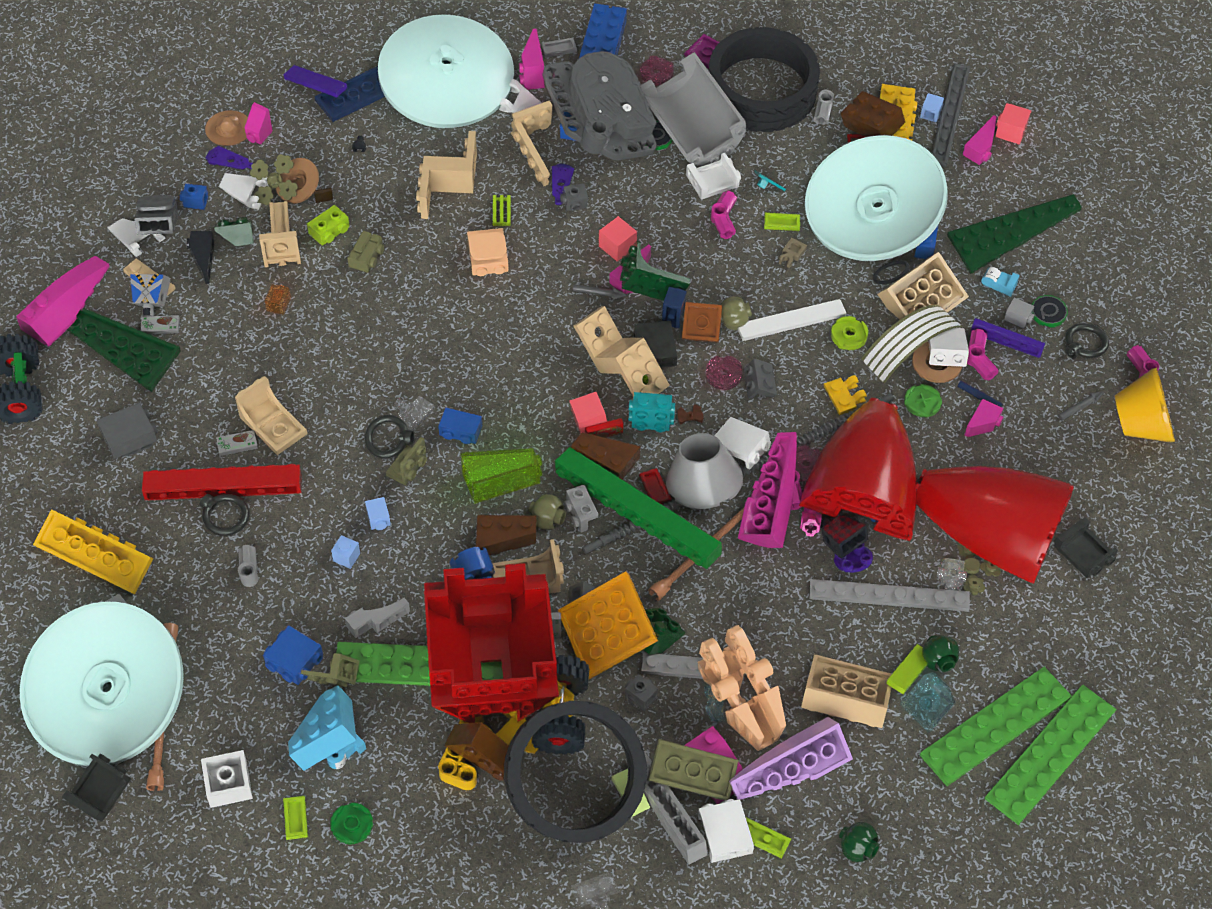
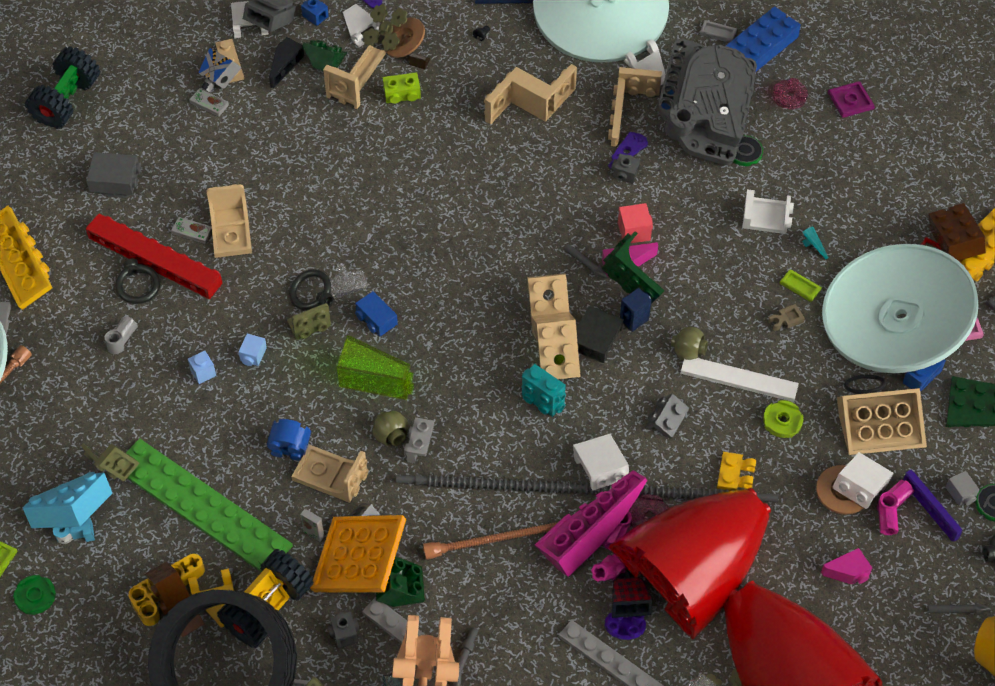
camera: 35 degrees right, 0 degrees up
(60, 302) = (140, 44): dark pink wedge -> none
(131, 350) = (169, 108): dark green wing -> none
(277, 299) = (313, 128): clear orange brick -> none
(292, 654) = (94, 427): blue brick -> none
(365, 252) = (414, 125): olive brick -> none
(378, 619) = (169, 432): light grey slope -> none
(487, 251) = (514, 177): light nougat brick -> none
(490, 622) = (239, 484): red panel -> none
(502, 199) = (563, 138): lime tile -> none
(505, 532) = (338, 424): reddish brown wedge -> none
(532, 64) = (678, 27): dark pink slope -> none
(587, 411) = (488, 363): coral head -> none
(606, 429) = (493, 384): red tile -> none
(608, 453) = (477, 408): reddish brown wedge -> none
(639, 508) = (465, 469): green brick -> none
(655, 486) = (500, 459): red tile -> none
(696, 113) = (786, 148): light grey cylinder -> none
(696, 415) = (586, 416): copper piece -> none
(702, 322) = (652, 336): dark orange plate -> none
(703, 473) = (545, 470): light grey cone -> none
(720, 215) = (747, 247): dark pink piece -> none
(722, 381) = (635, 401): clear pink plate -> none
(774, 45) = (885, 109): black tyre -> none
(824, 106) = (920, 201): light grey piece -> none
(906, 337) = (834, 449): sticker -> none
(923, 400) = (805, 518): bright green tile -> none
(977, 393) = (865, 544): dark blue piece -> none
(1000, 281) = (968, 449): medium azure leg -> none

